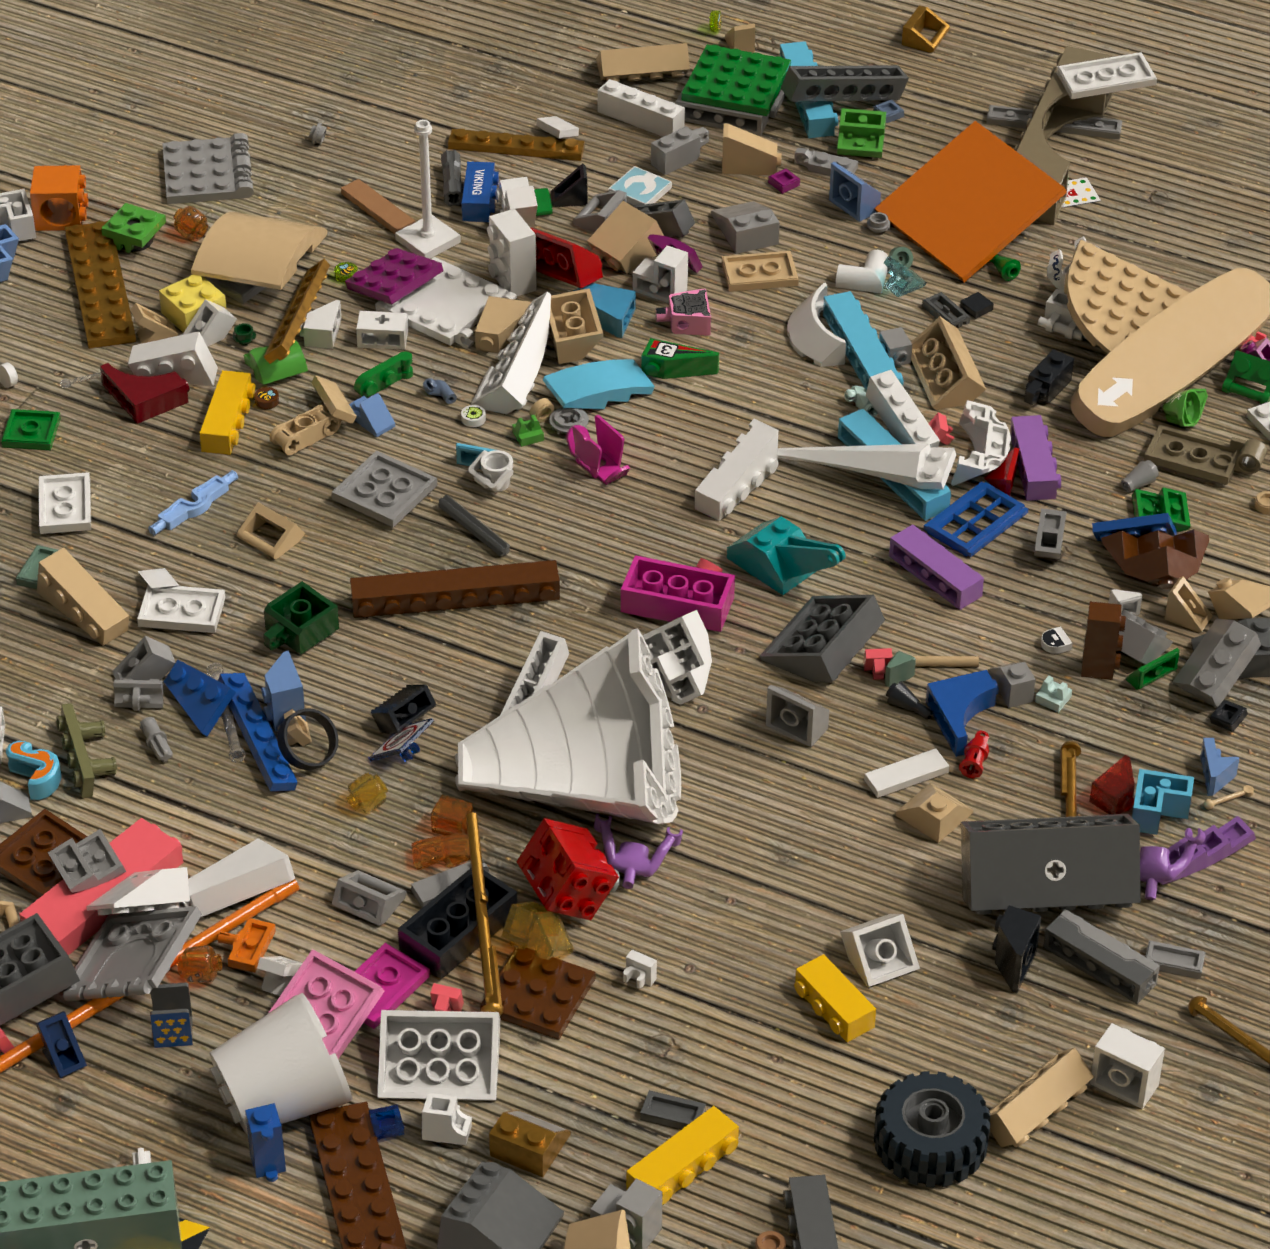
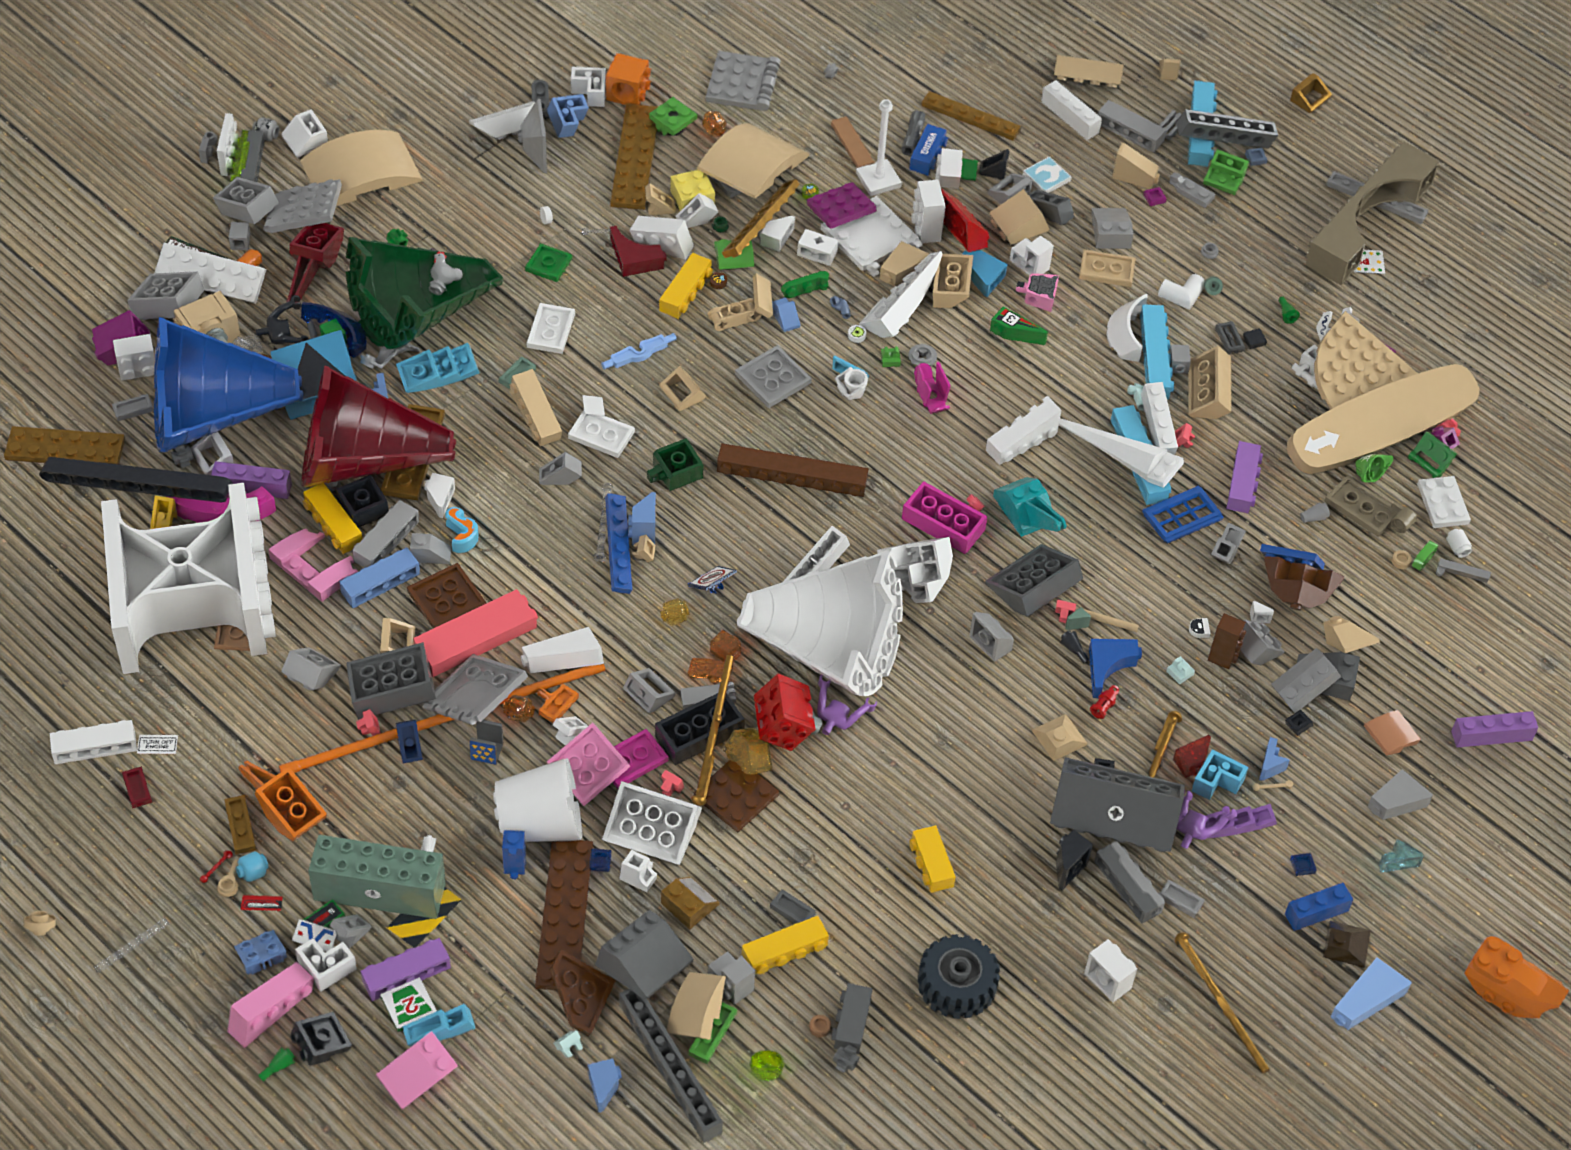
camera: 15 degrees right, 10 degrees up
(77, 756) = (494, 537): olive plate -> none
(87, 862) = (469, 613): light grey slope -> none
(138, 693) = (549, 492): light grey hips -> none
(145, 892) = (497, 646): white slope -> none
(156, 739) = (549, 529): light grey axle -> none
(199, 695) = (589, 504): blue wing -> none
(327, 724) = (630, 560): black tyre -> none
(403, 708) = (722, 554): black brick -> none
(474, 525) = (825, 422): dark grey axle -> none
(542, 409) = (905, 343): tan tile -> none
(557, 127) = (1005, 109): white tile -> none
(597, 383) = (953, 332): medium azure slope -> none
(640, 968) = (809, 797): white tile -> none
(659, 242) = (1039, 231): magenta slope -> none
(678, 149) = (1086, 150): light grey hinge -> none
(715, 21) = (1156, 46): clear neon green tile -> none
(736, 80) = (1149, 104): green plate -> none
(852, 193) = (1199, 222): medium blue slope -> none
(880, 949) = (978, 831): white slope -> none
(902, 279) = (1208, 302): clear light blue slope -> none
(906, 773) = (1052, 701): white tile -> none
(936, 567) = (1137, 546): medium lavender brick -> none
(970, 201) = (1281, 253): orange tile -> none
(989, 439) = (1217, 456): white windscreen -> none
(1004, 475) = (1218, 483): red slope -> none
(1014, 683) = (1155, 653): light grey slope -> none
(1039, 1097) = (1041, 975): tan brick -> none
(1049, 377) = (1281, 415): black hinge -> none
(1106, 75) = (1423, 175): white tile -> none
(1154, 670) = (1260, 671): green slope -> none
(1167, 501) = (1323, 543): green slope -> none
(1186, 607) = (1304, 629): tan slope -> none

